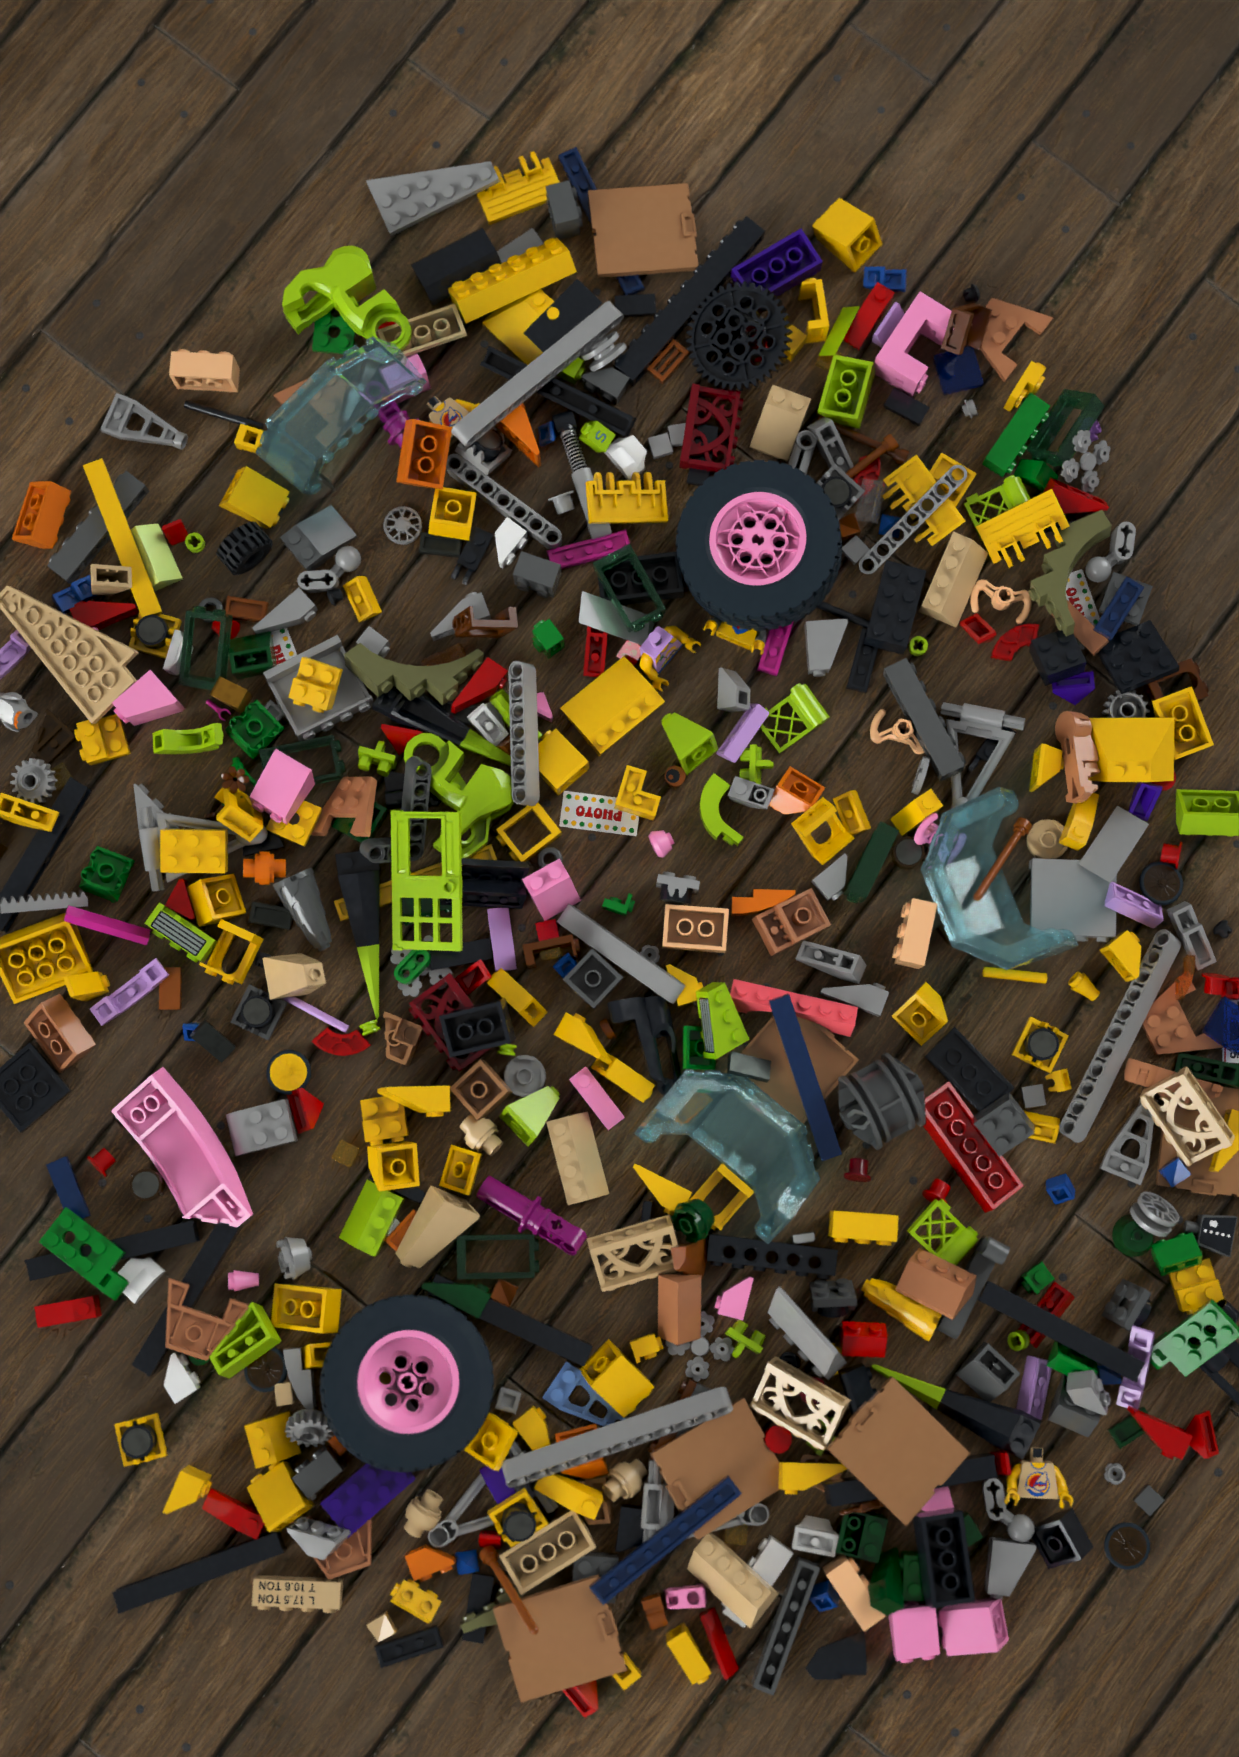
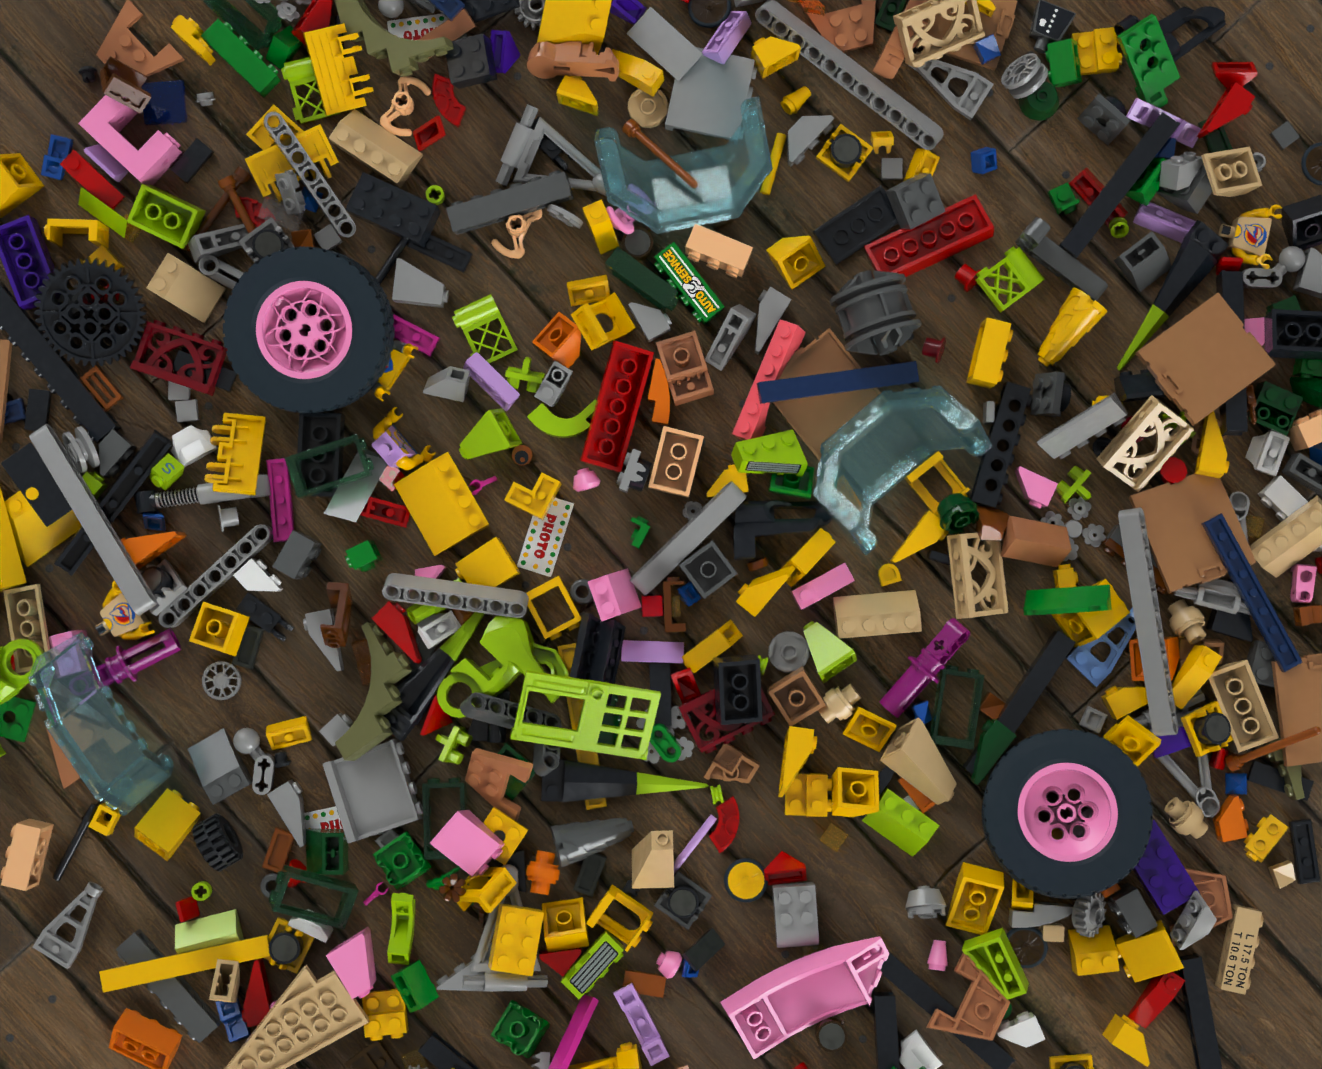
camera: 80 degrees left, 5 degrees up
(133, 763) = (415, 986): none -> green brick
(193, 1009) = (669, 963): none -> bright pink cone
(231, 694) = (363, 878): pearl gold slope -> none
(315, 685) = (369, 793): yellow plate -> none
(424, 454) = (155, 647): orange slope -> none
(486, 1222) = (922, 711): none -> blue slope
(620, 1164) = (888, 574): none -> yellow tile
(625, 1350) = (1067, 600): none -> green windscreen
(638, 739) = (479, 484): none -> dark pink hand
(740, 860) = (617, 406): none -> red arch
(749, 1066) = (818, 434): pearl dark grey tile -> none
(863, 1339) = (1095, 372): red slope -> none
(877, 911) = (689, 283): none -> brick
(884, 508) = (292, 200): none -> light grey hinge
(936, 1283) = (1055, 293): nougat slope -> none
(1049, 1001) = (805, 136): none -> light grey slope
(1097, 1446) = (1232, 172): none -> tan slope

